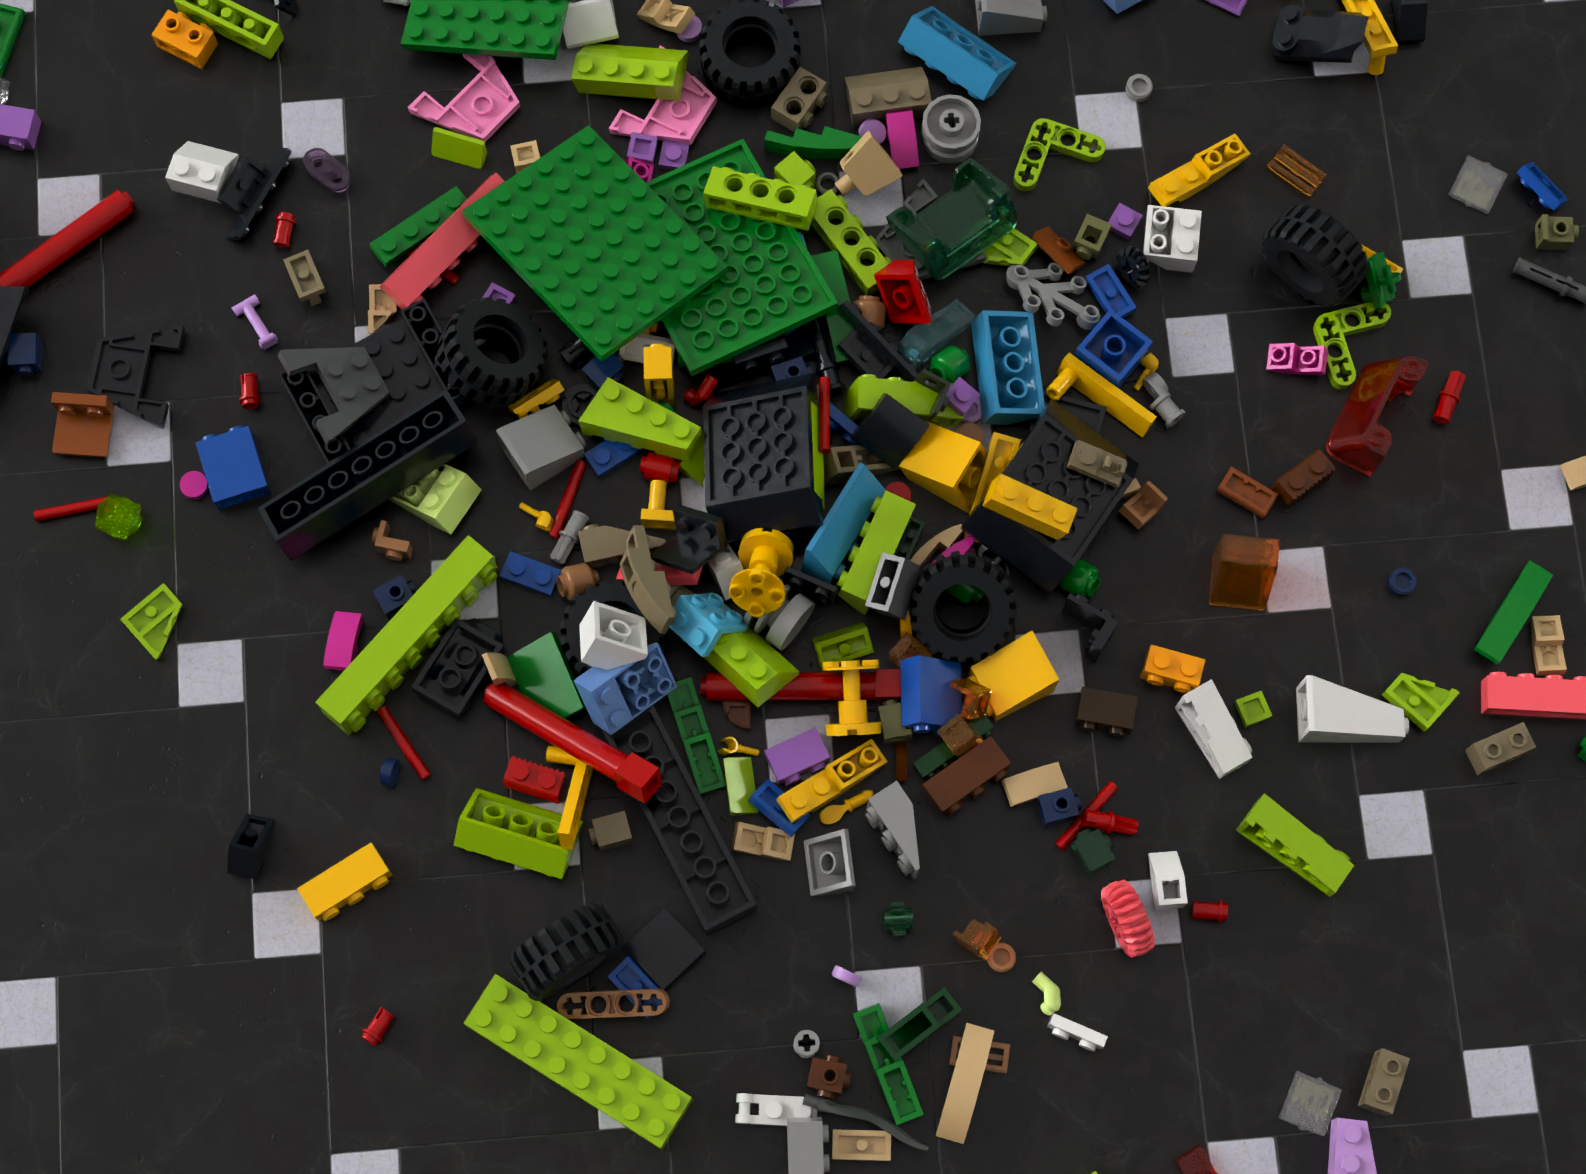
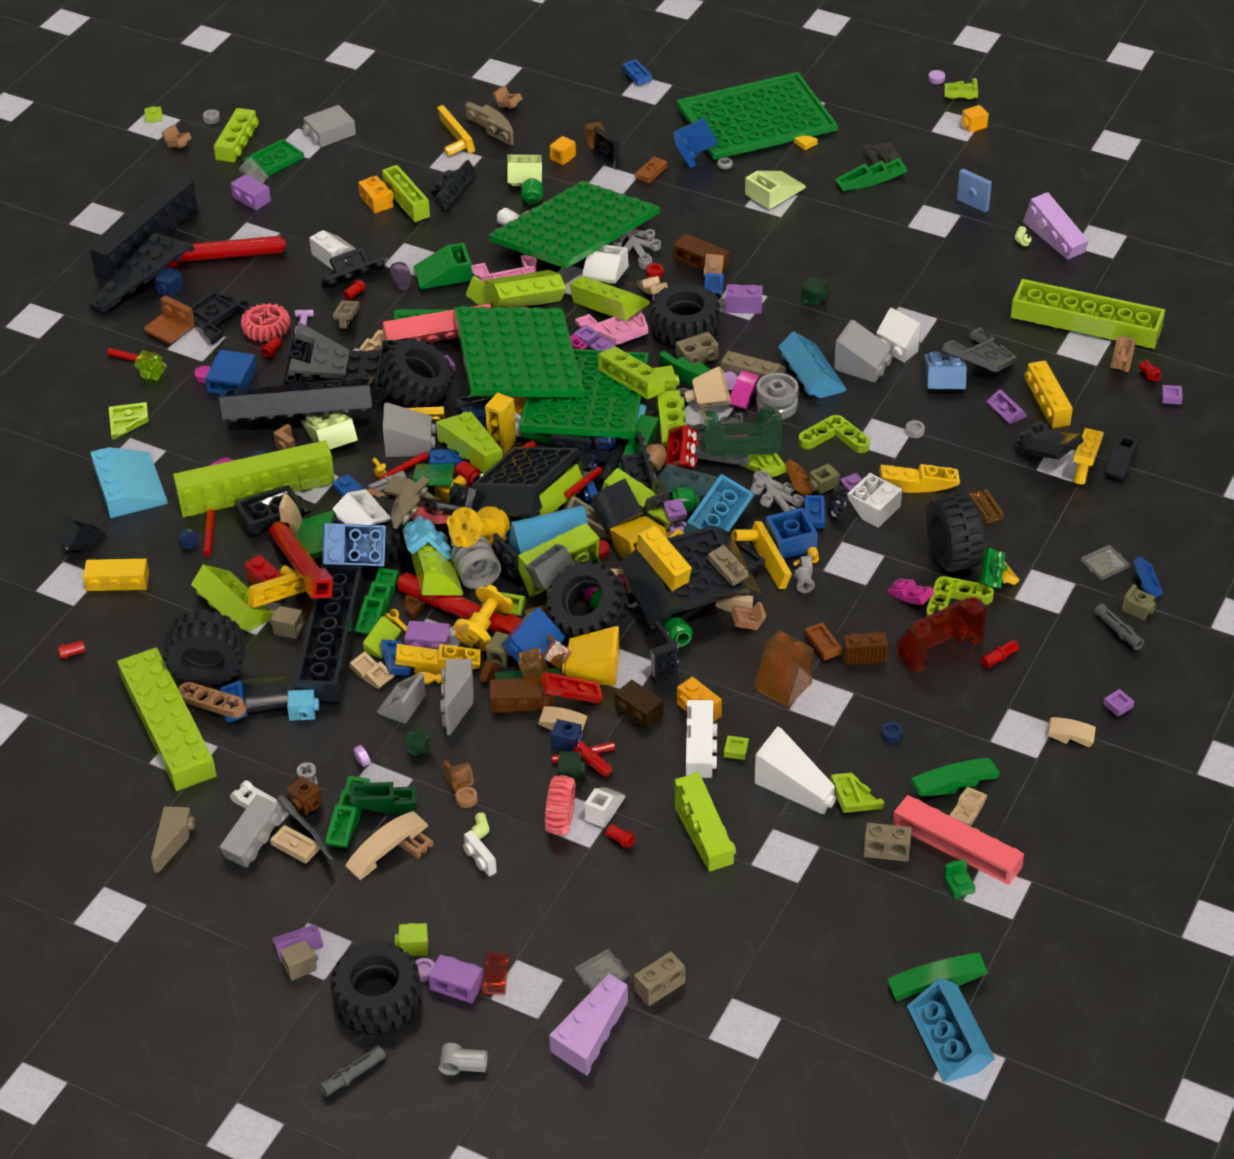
camera: 35 degrees right, 30 degrees down
(187, 362) = (265, 322): none -> coral gear
(238, 721) = (127, 480): none -> medium azure slope
(377, 129) = (444, 267): none -> green slope
(515, 114) = (525, 289): none -> lime slope
(625, 498) = (437, 473): none -> green tile
(724, 944) = (302, 704): none -> medium azure brick
(1022, 740) = (571, 687): none -> red plate

